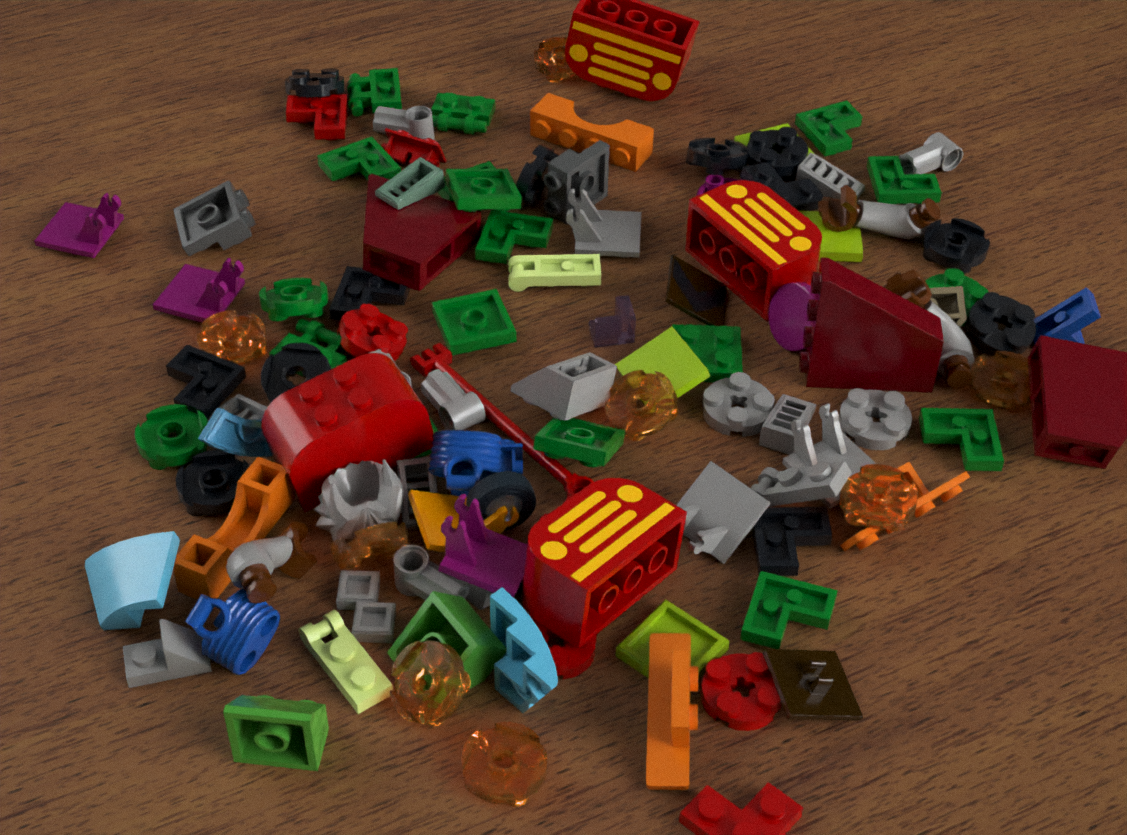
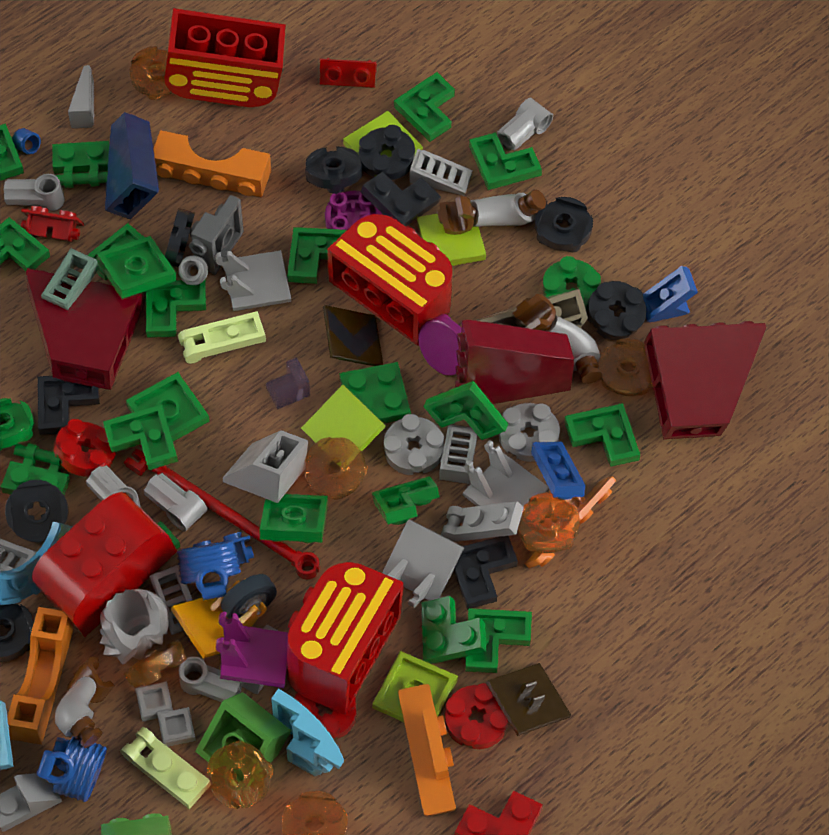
camera: 15 degrees left, 15 degrees up
(413, 83) = (21, 136): none -> blue piece
(440, 324) = (146, 428): none -> green plate
(480, 65) = (82, 104): none -> light grey slope
(506, 118) = (131, 167): none -> dark blue slope
(536, 200) = (185, 266): none -> light grey plate
(665, 220) = (306, 250): none -> green plate
(703, 450) = (399, 501): none -> green plate
(726, 595) = (445, 638): none -> green plate
(754, 87) = (348, 73): none -> red hinge
(810, 368) = (470, 404): none -> green plate
(902, 449) = (558, 470): none -> blue plate

